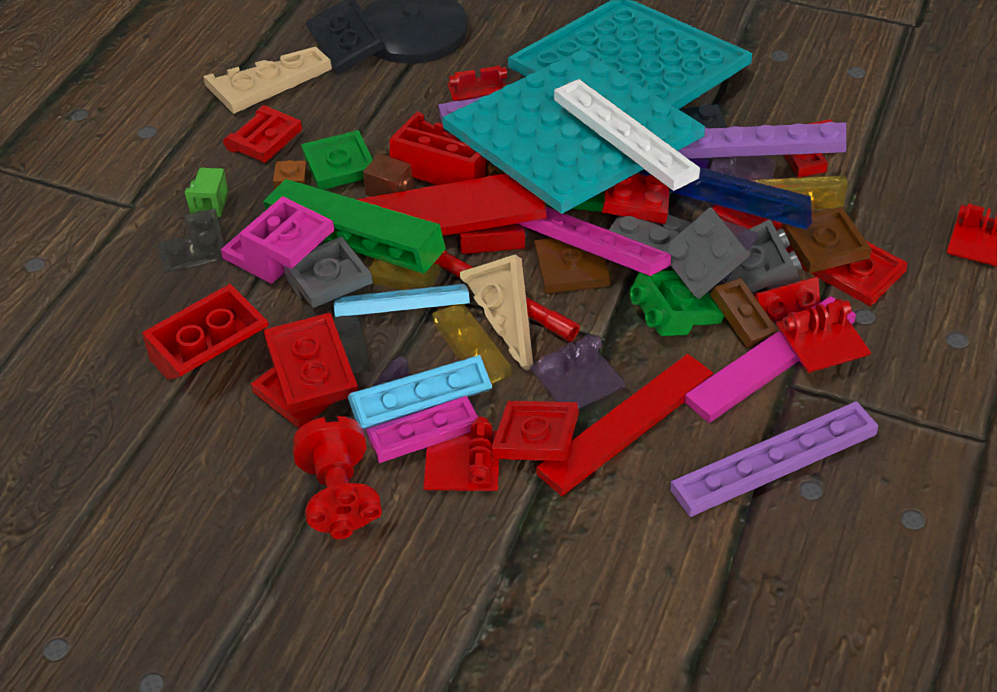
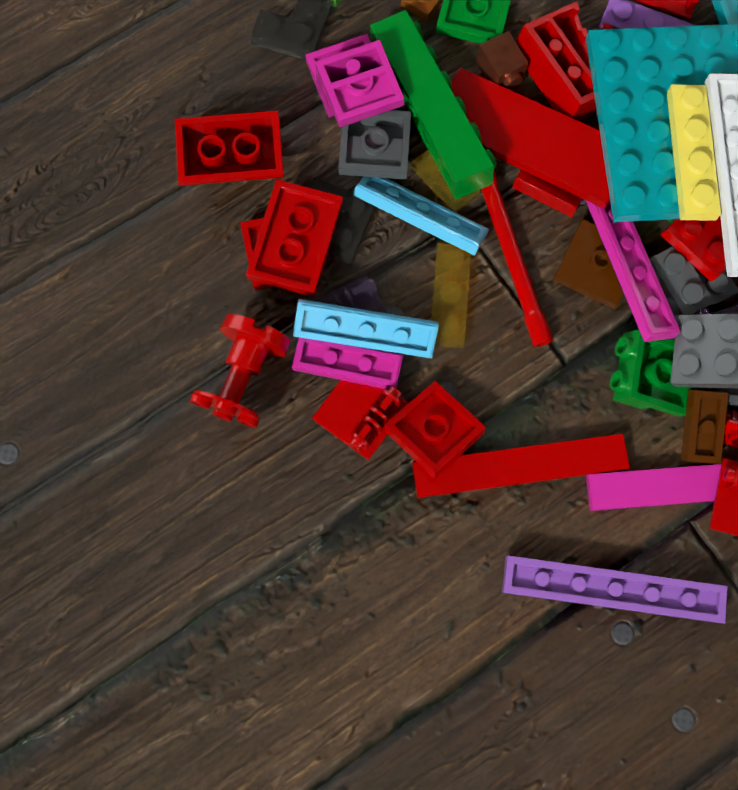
camera: 30 degrees right, 30 degrees up
(502, 294) = (503, 274): tan wing -> none
(578, 373) = (514, 391): clear purple hinge -> none
(583, 139) = (693, 153): none -> light yellow plate

